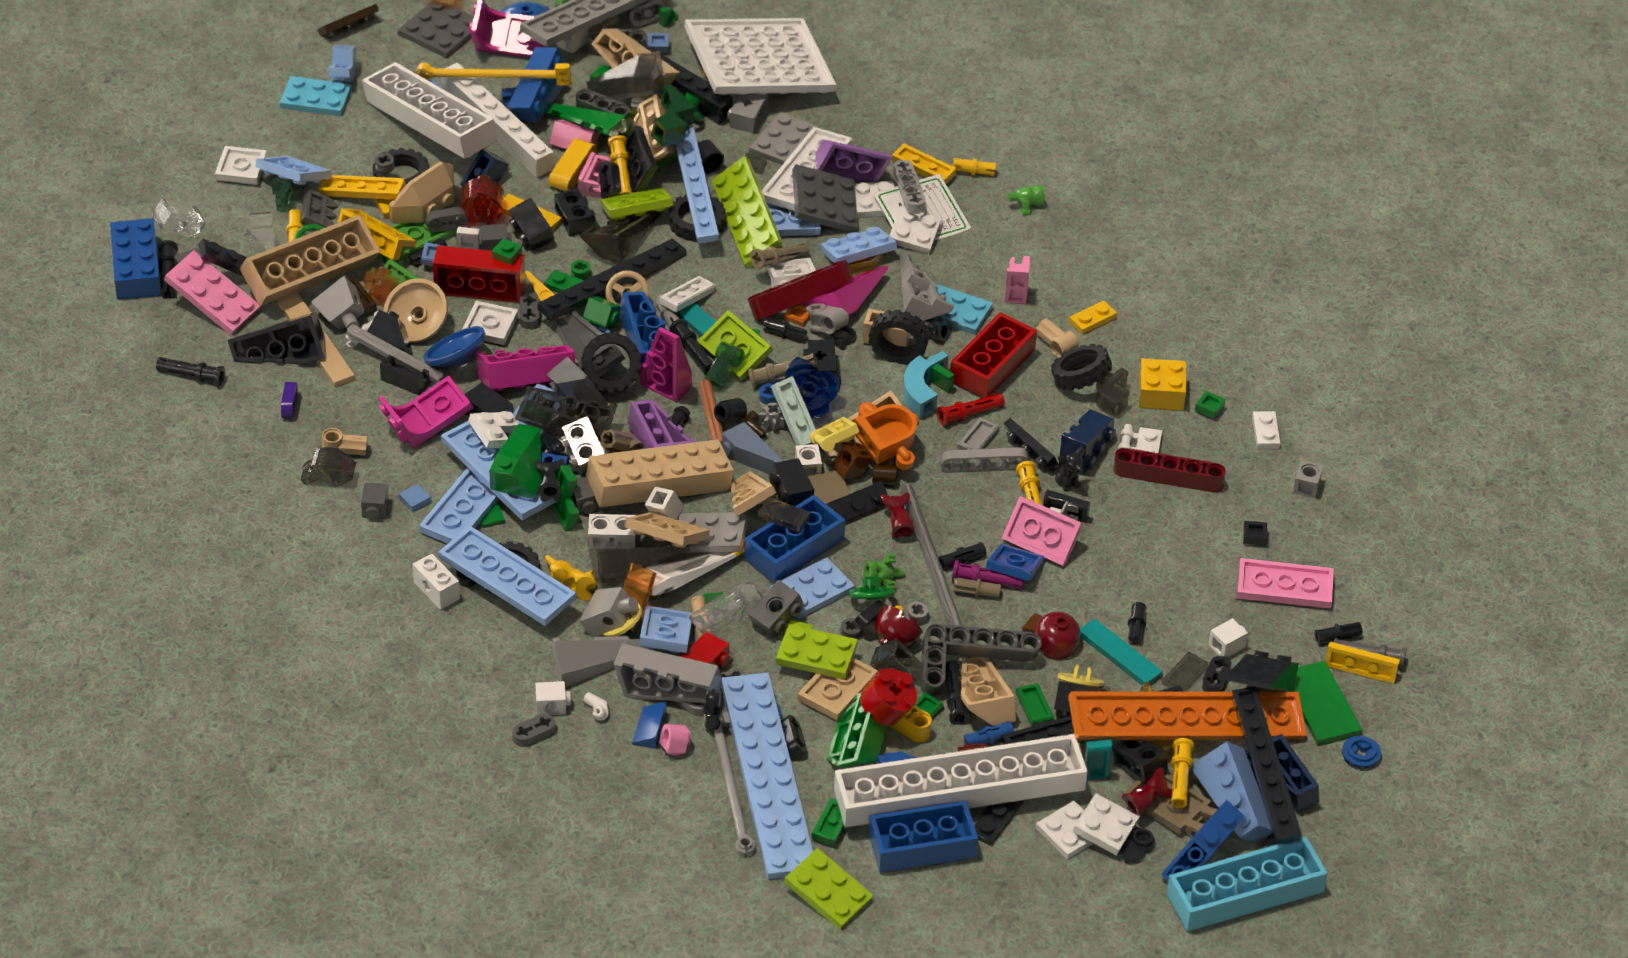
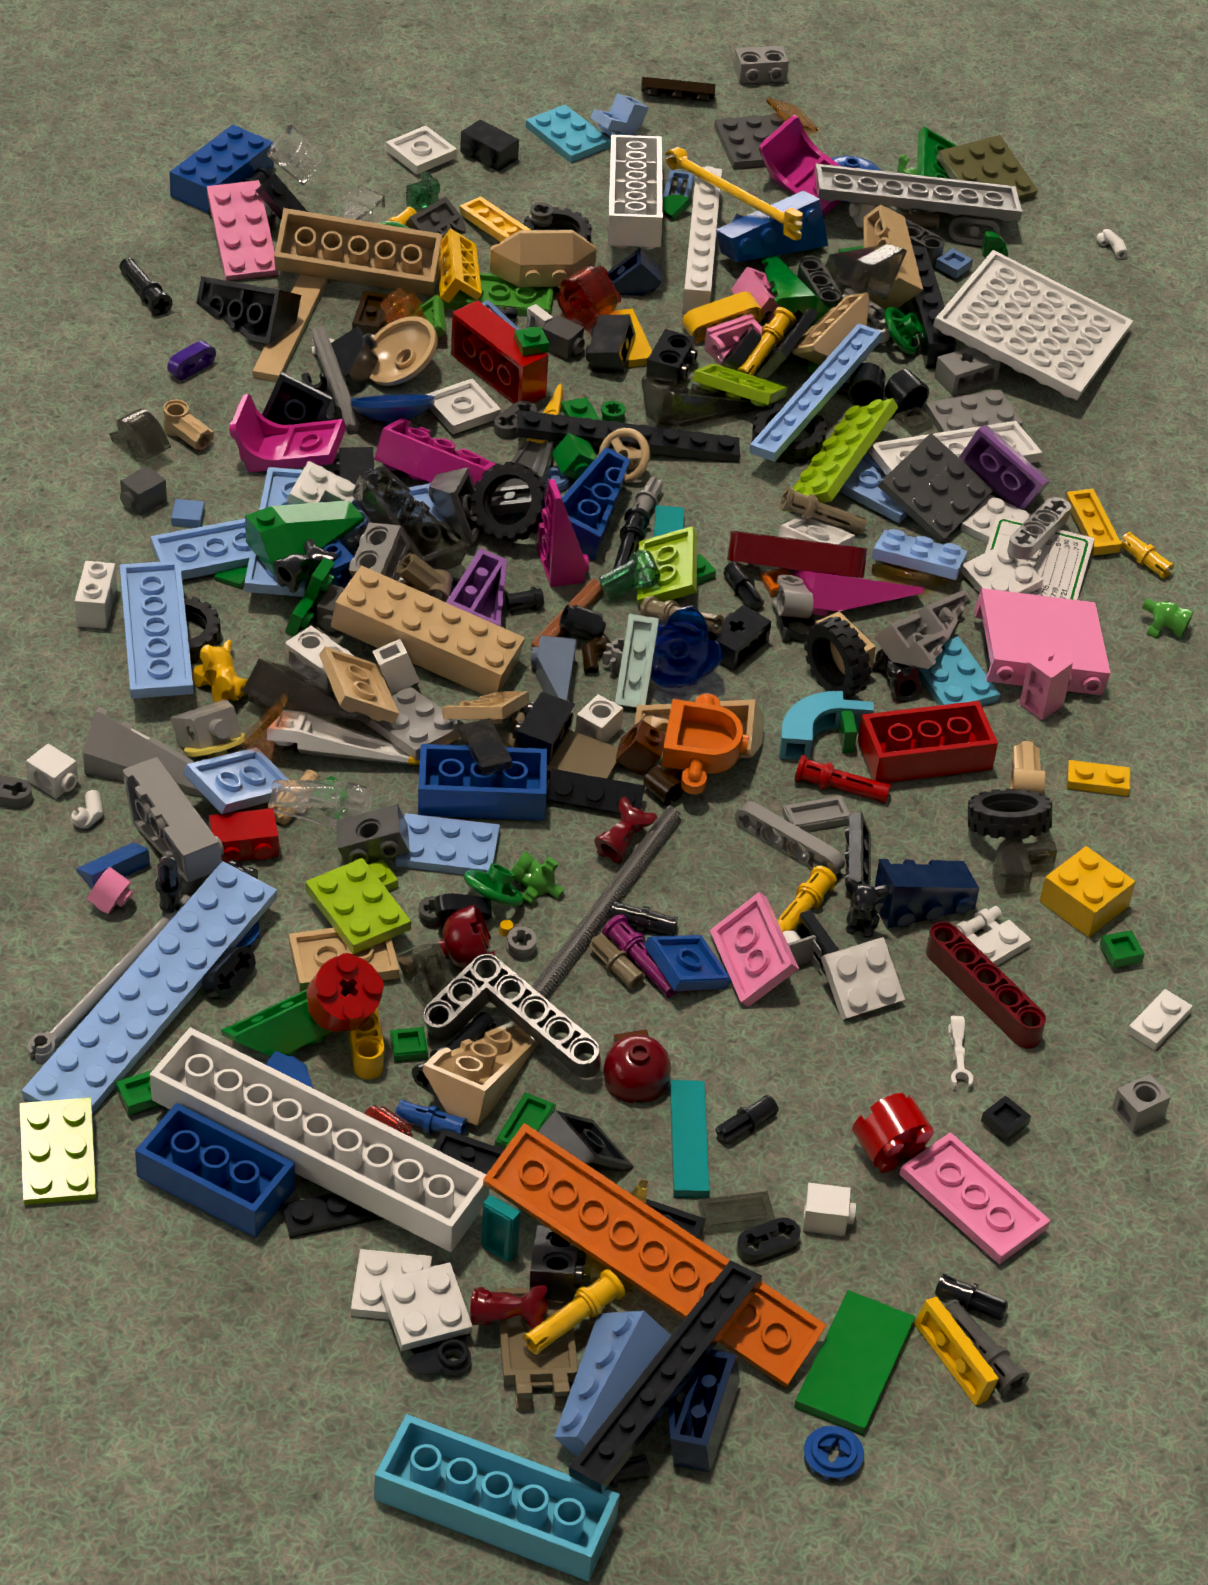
camera: 40 degrees right, 0 degrees up
(282, 135) = (489, 145): none -> black brick
(294, 169) = (453, 174): light blue plate -> none
(340, 304) = (341, 305): light grey torso -> none
(404, 384) = (295, 402): none -> black slope
(446, 219) = (534, 291): dark grey beam -> none
(672, 126) = (836, 322): dark green arch -> none
(687, 294) = (683, 493): white tile -> none
(733, 146) = (906, 390): none -> black piece
(832, 433) = (651, 706): light yellow plate -> none
(983, 252) = (1030, 625): none -> bright pink panel
(1080, 679) = (600, 1131): light yellow piece -> none
(1110, 508) = (862, 978): none -> white plate
(1183, 507) = (956, 1035): none -> white piece
(1206, 840) = (504, 1411): blue slope -> none
(1219, 576) = (893, 1131): none -> red brick
(1265, 672) = (801, 1272): black slope -> none

